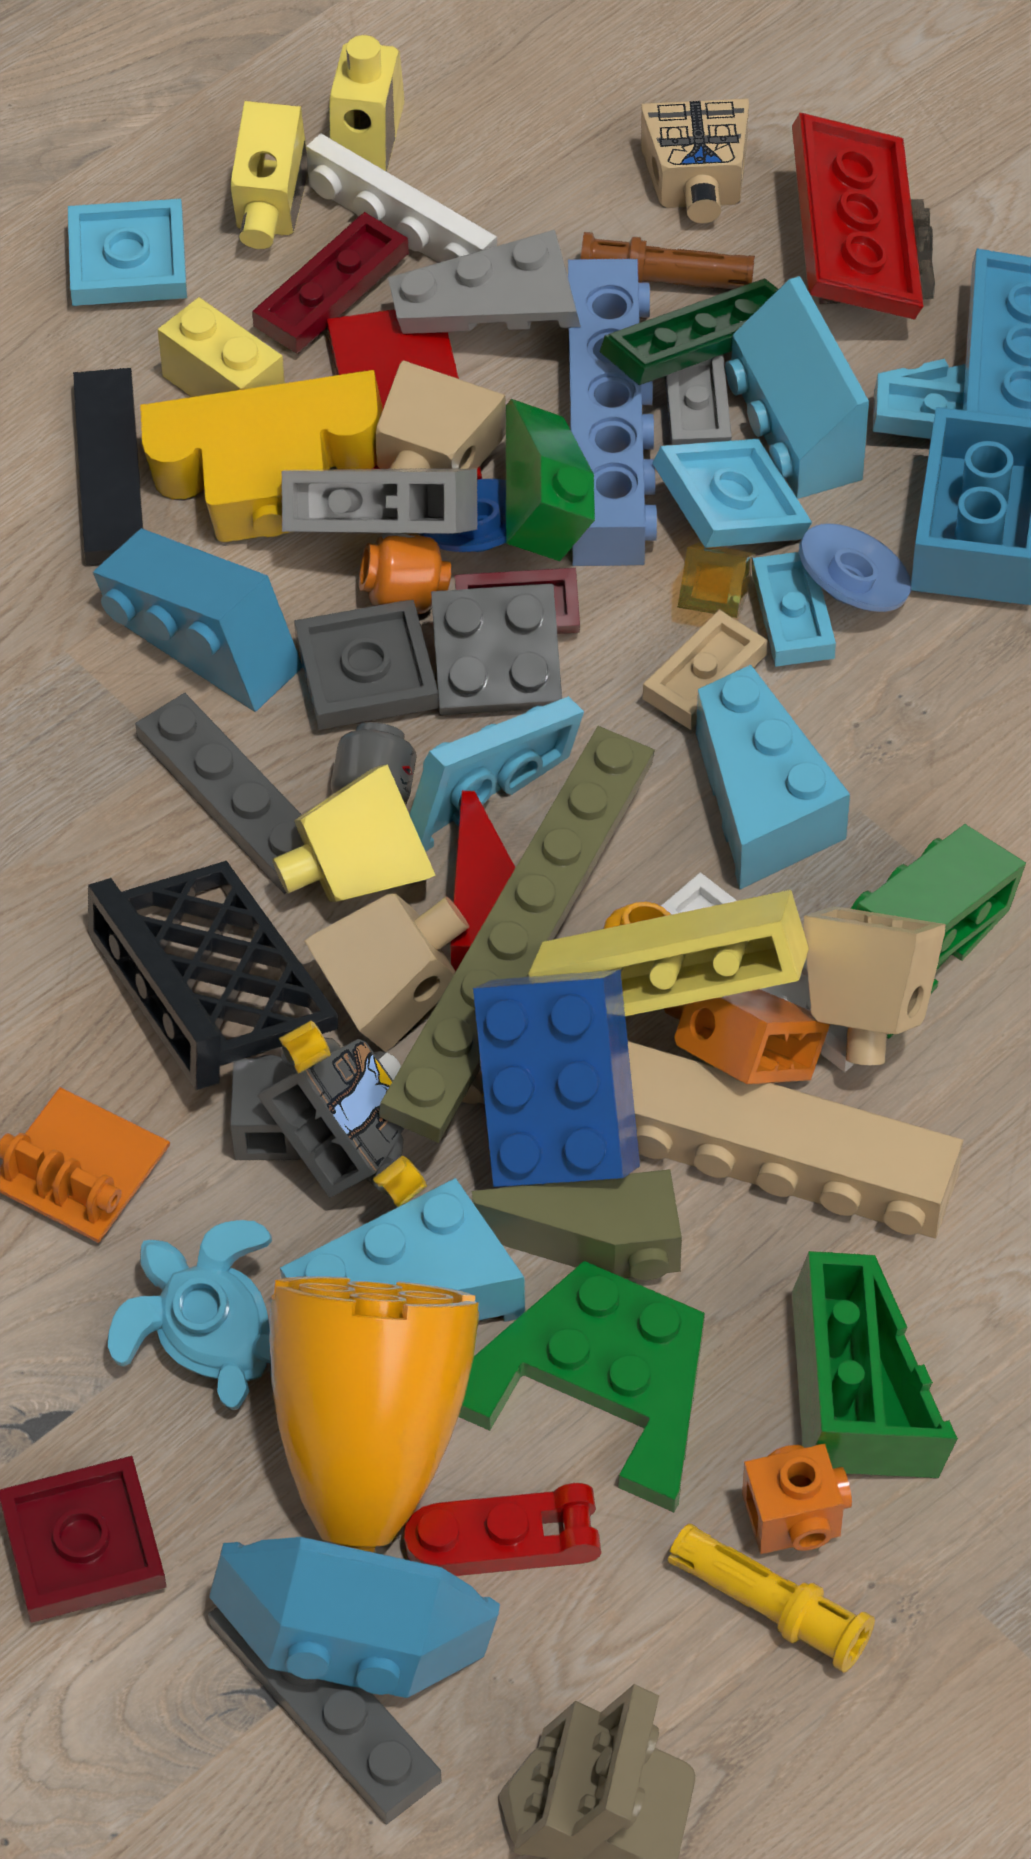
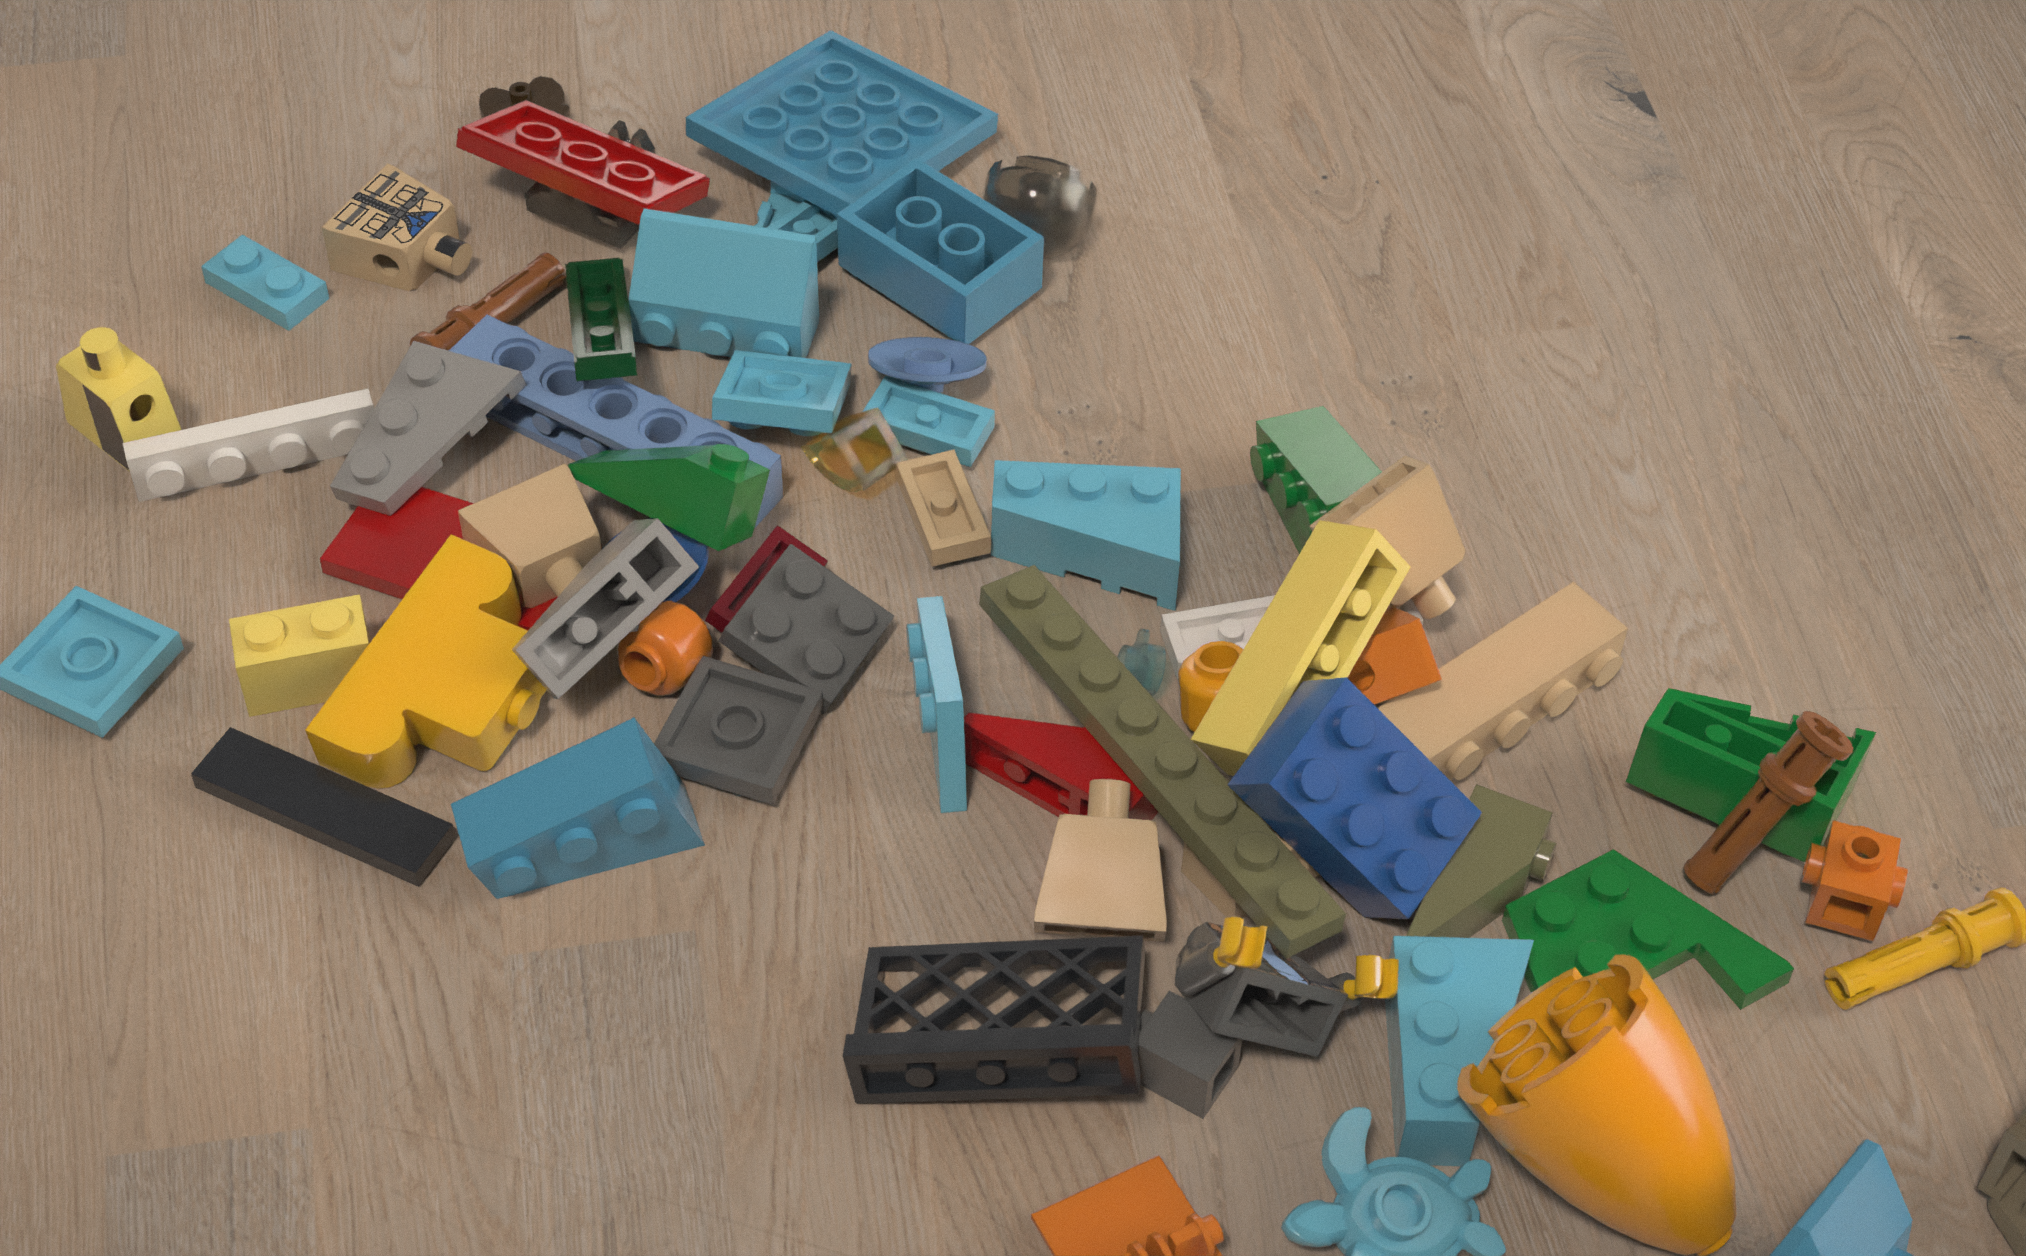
camera: 60 degrees left, 5 degrees down
(222, 781) = (790, 904): dark grey plate -> none
(268, 191) = (124, 503): light yellow torso -> none
(330, 282) = (279, 533): dark red plate -> none
(356, 842) = (951, 823): light yellow torso -> none
(370, 747) = (866, 781): dark grey head -> none
(505, 1532) = (1759, 1107): red plate -> none
(584, 113) = (265, 282): none -> medium azure plate
(636, 884) = (1144, 661): none -> clear light blue plate
(698, 403) = (673, 370): light grey plate -> none
(807, 1373) = (1783, 782): none -> dark orange pin
(941, 152) = (540, 91): none -> dark brown piece

